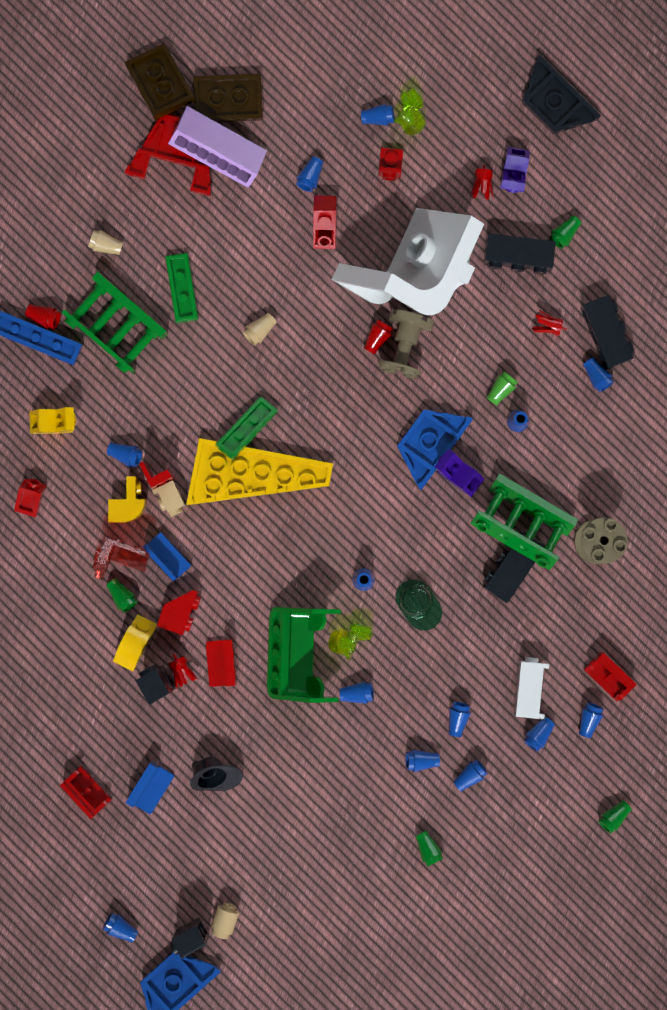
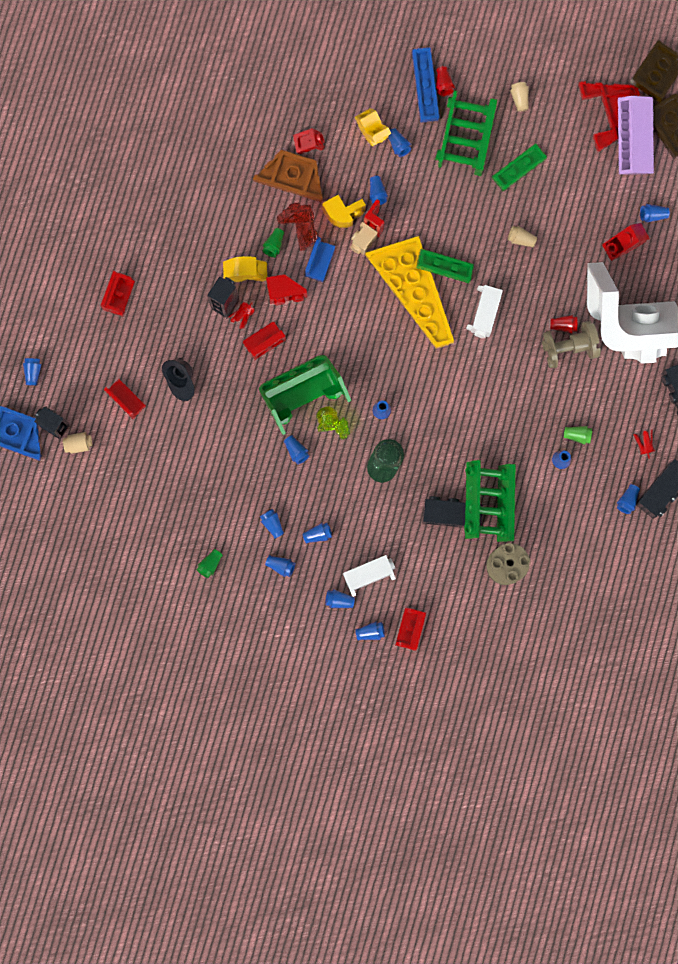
camera: 60 degrees right, 5 degrees down
(57, 535) = (292, 174): none -> dark orange wing
(85, 401) = (399, 143): none -> blue cone
(150, 788) = (145, 337): blue panel -> none
(204, 845) = (125, 398): none -> red panel
(319, 412) = (486, 311): none -> white brick
(428, 441) = (509, 403): blue wing -> none
(459, 473) = (499, 435): dark purple brick -> none
(614, 817) = (307, 689): green cone -> none

